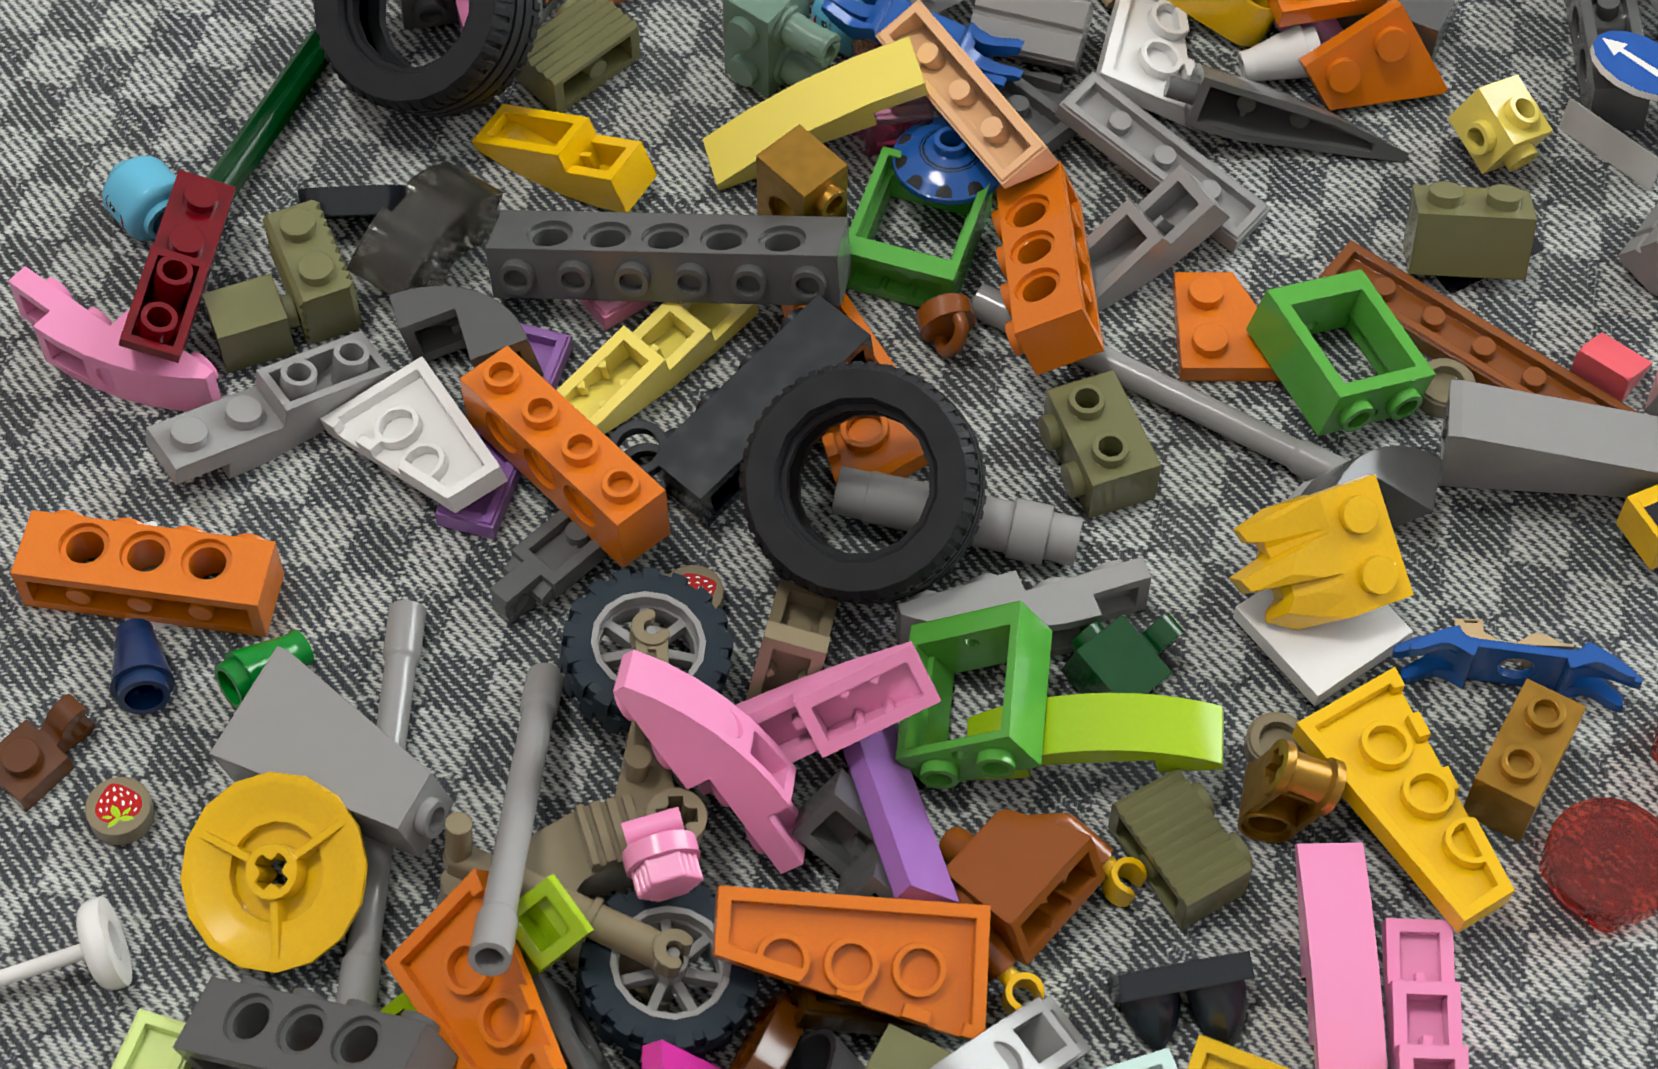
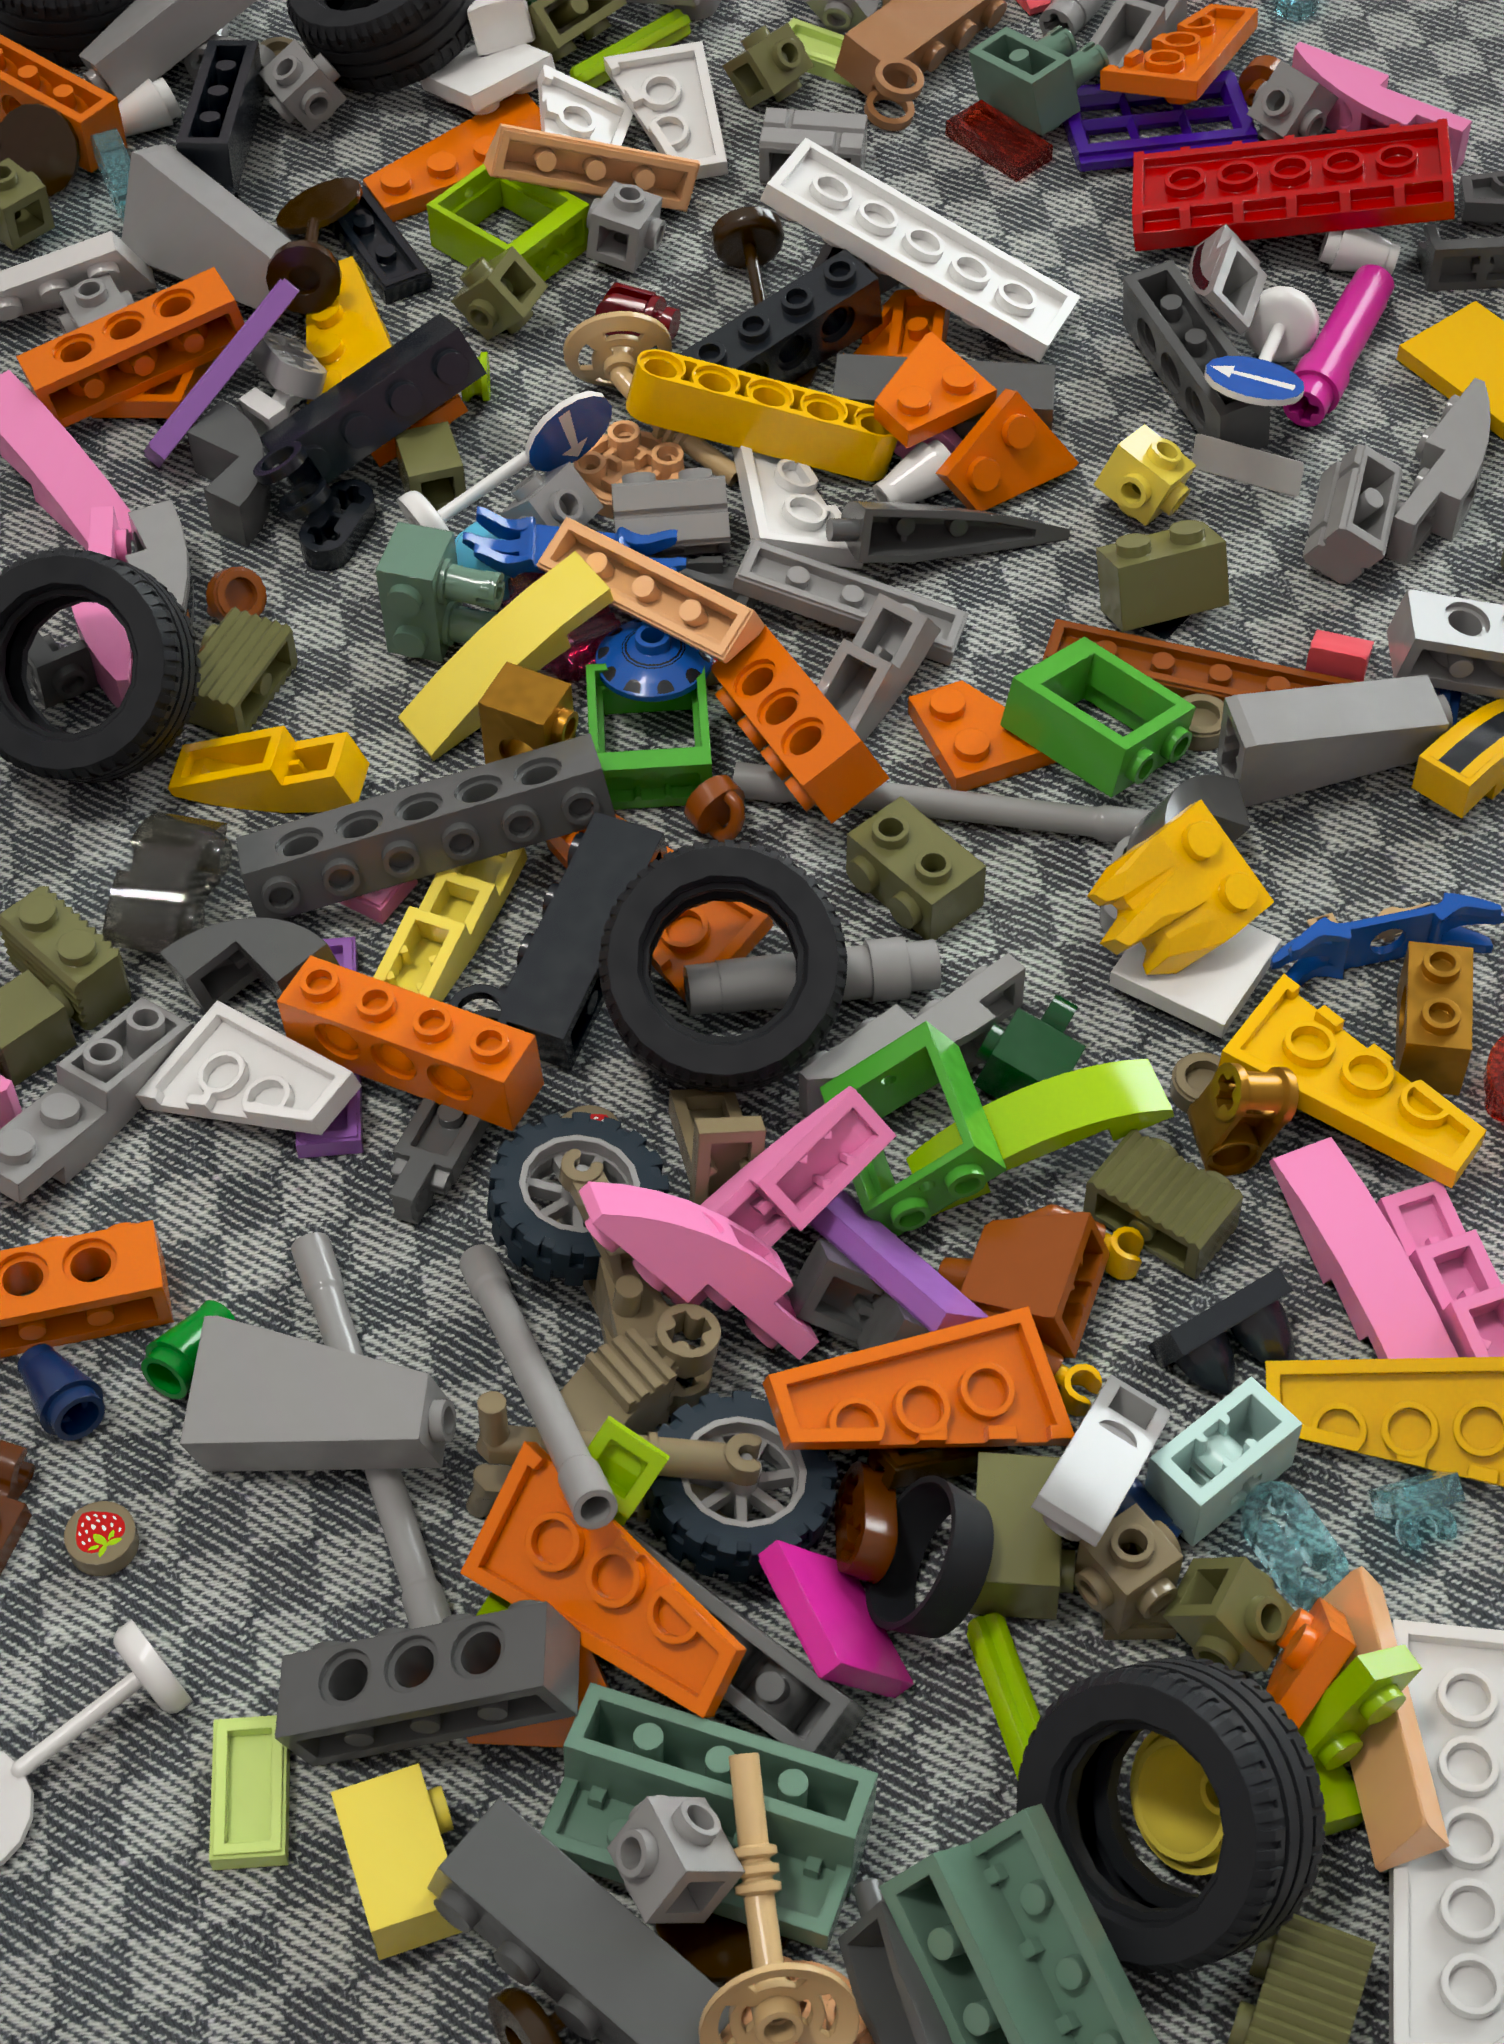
camera: 20 degrees left, 5 degrees down
(231, 872) = (253, 1559): yellow piece -> none
(354, 201) = (79, 877): black beam -> none
(661, 856) = (693, 1371): bright pink piece -> none

